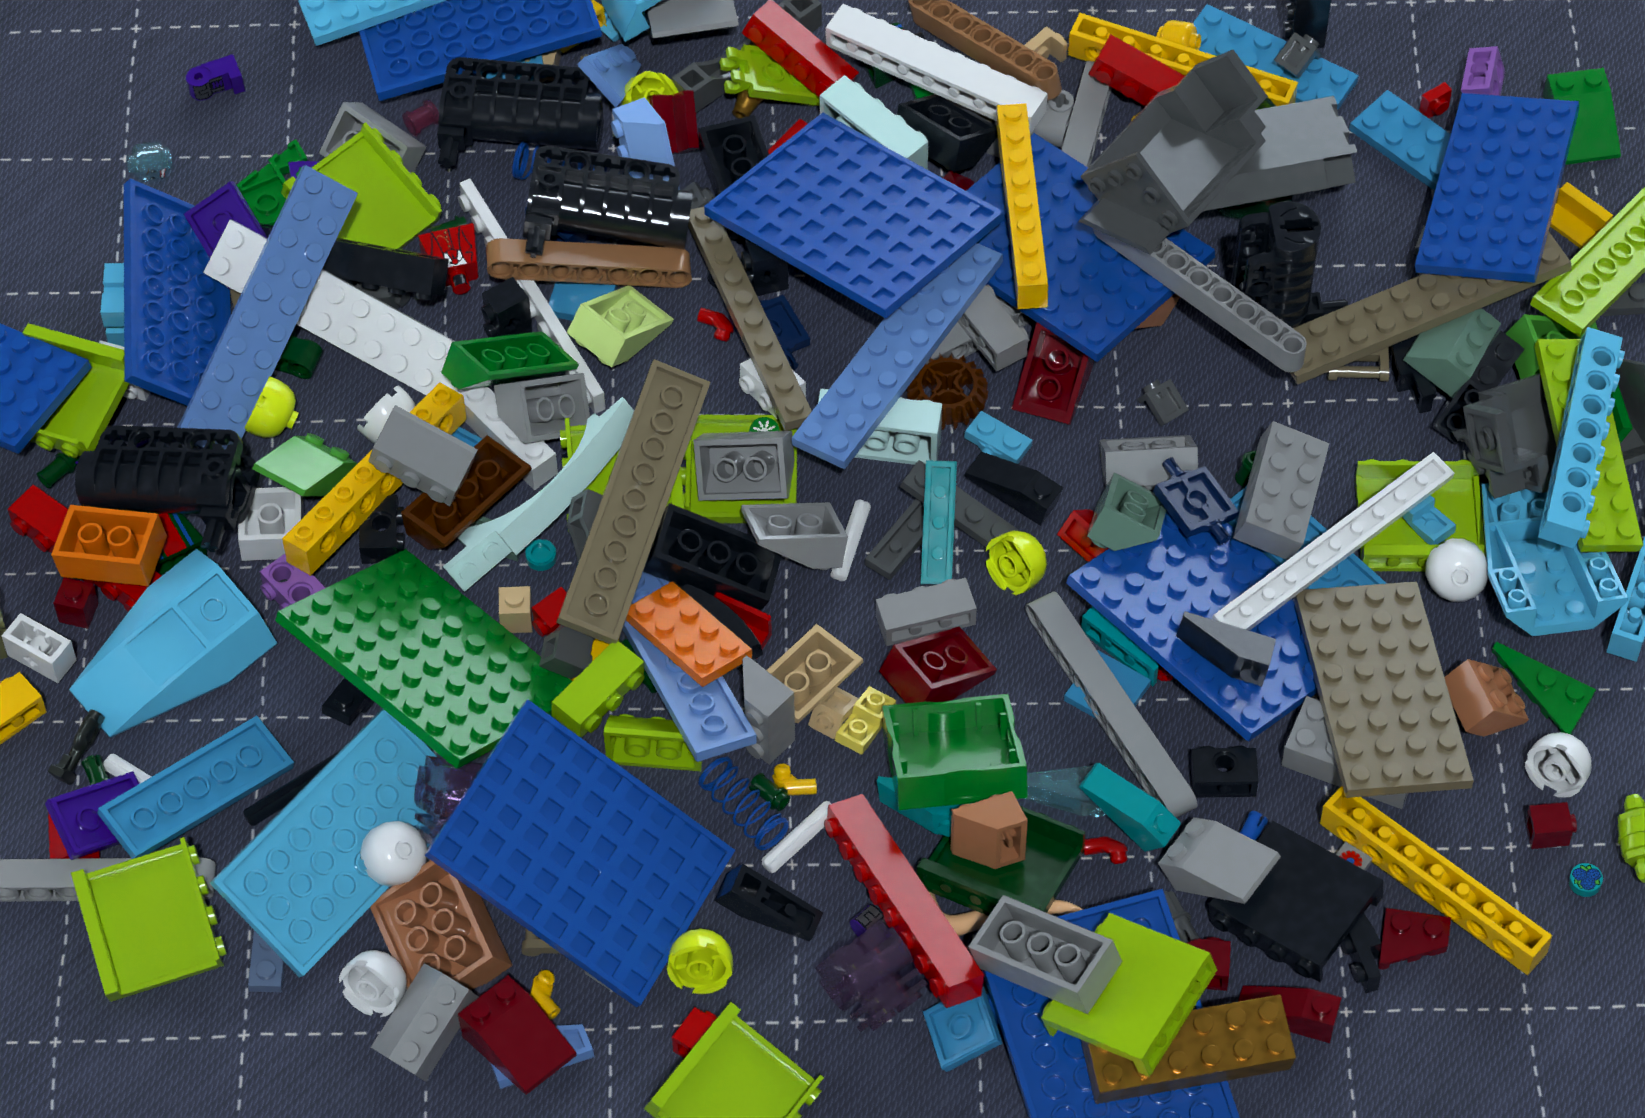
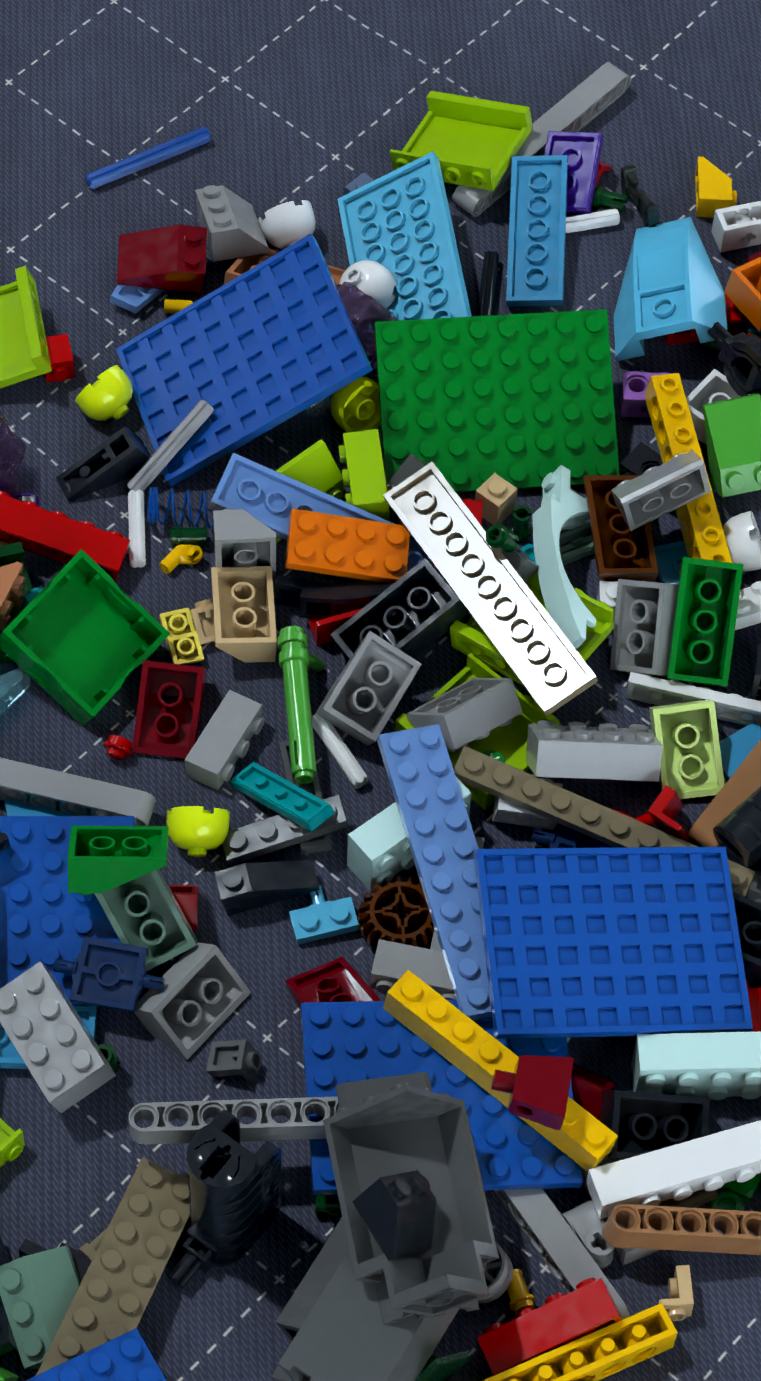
camera: 130 degrees right, 0 degrees up
(521, 574) = (521, 522): none -> dark green pin
(594, 503) = (499, 537): none -> dark green pin
(690, 345) = (593, 751): none -> light grey brick
(694, 287) = (665, 810): none -> red panel
(701, 857) = (171, 446): none -> light grey axle
(820, 601) = (294, 661): none -> bright green cylinder
(1005, 676) = (118, 747): none -> red plate
(1023, 146) = (537, 1088): none -> dark red torso
(1123, 530) = (113, 855): none -> green slope
(1202, 140) = (399, 1213): none -> black slope

